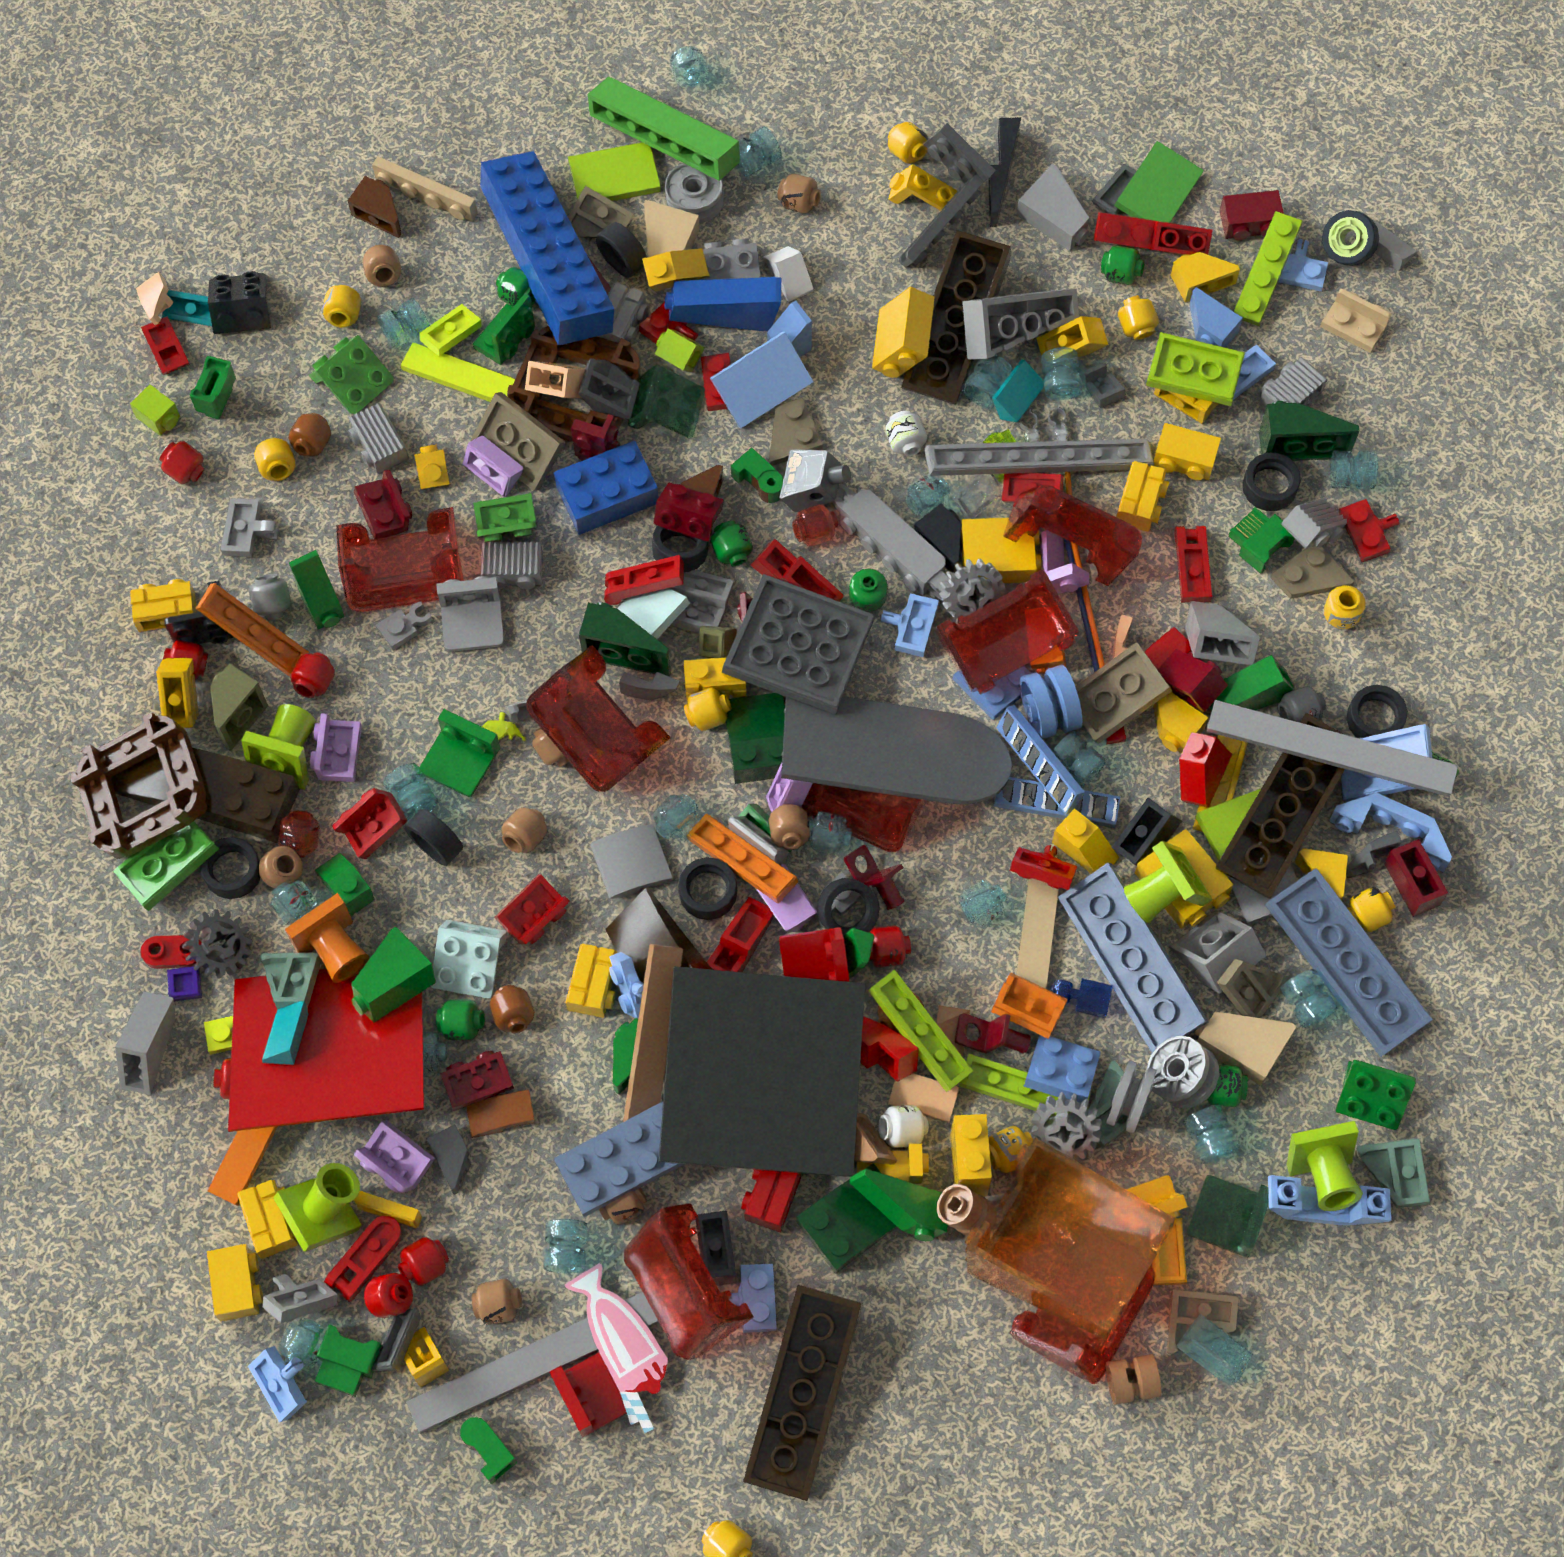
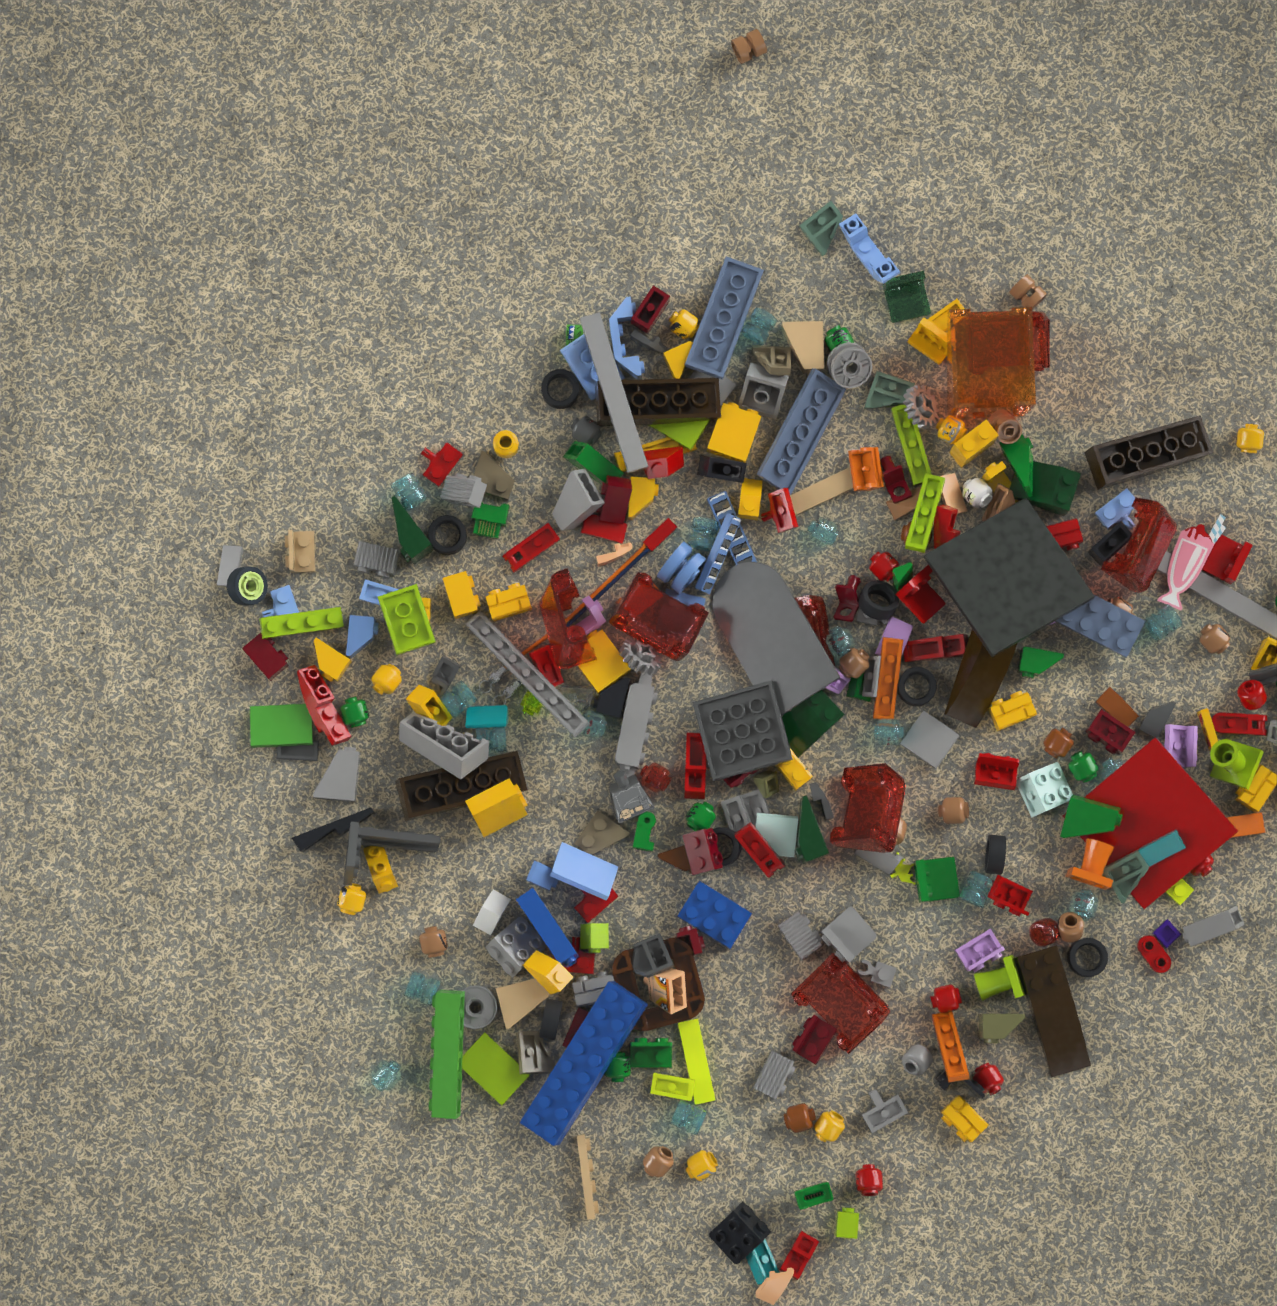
camera: 130 degrees left, 15 degrees up
(165, 864) = (1110, 995): bright green tile -> none
(178, 690) = (1014, 1062): yellow brick -> none
(186, 786) = (1106, 1054): reddish brown plate -> none
(214, 932) = (1133, 925): dark grey gear -> none
(316, 590) = (900, 1027): green slope -> none
(343, 878) = (1052, 888): green slope -> none
(352, 374) = (742, 1126): bright green bracket -> none
(375, 206) = (617, 1198): reddish brown slope -> none
(423, 1261) = (1221, 691): red head -> none
(431, 467) = (768, 1031): yellow bracket -> none
(492, 465) = (743, 994): lavender slope -> none
(505, 516) = (777, 957): bright green bracket -> none
(521, 439) = (722, 987): dark tan plate -> none
(626, 978) = (1008, 681): light blue plate -> none
(652, 1031) = (1026, 651): medium nougat tile -> none
(667, 401) = (632, 920): clear green bracket -> none
(707, 709) = (814, 758): yellow head -> none
(868, 590) = (670, 718): green head -> none
(906, 433) = (559, 764): white head -> none
(913, 624) = (679, 680): light blue plate -> none
(1062, 1067) = (888, 429): medium blue plate -> none
(1091, 997) = (837, 441): clear blue plate -> none
(1119, 692) = (648, 535): dark tan plate -> none
(1131, 1096) = (886, 379): light grey wheel -> none
(1166, 884) = (748, 431): lime plant -> none
(1188, 1305) = (971, 281): dark tan wing -> none
(1211, 1134) = (872, 329): clear light blue wheel -> none
(1215, 1350) = (983, 262): clear light blue slope -> none
(1327, 1155) = (851, 259): lime plant -> none
(1375, 1094) = (788, 262): green bracket -> none

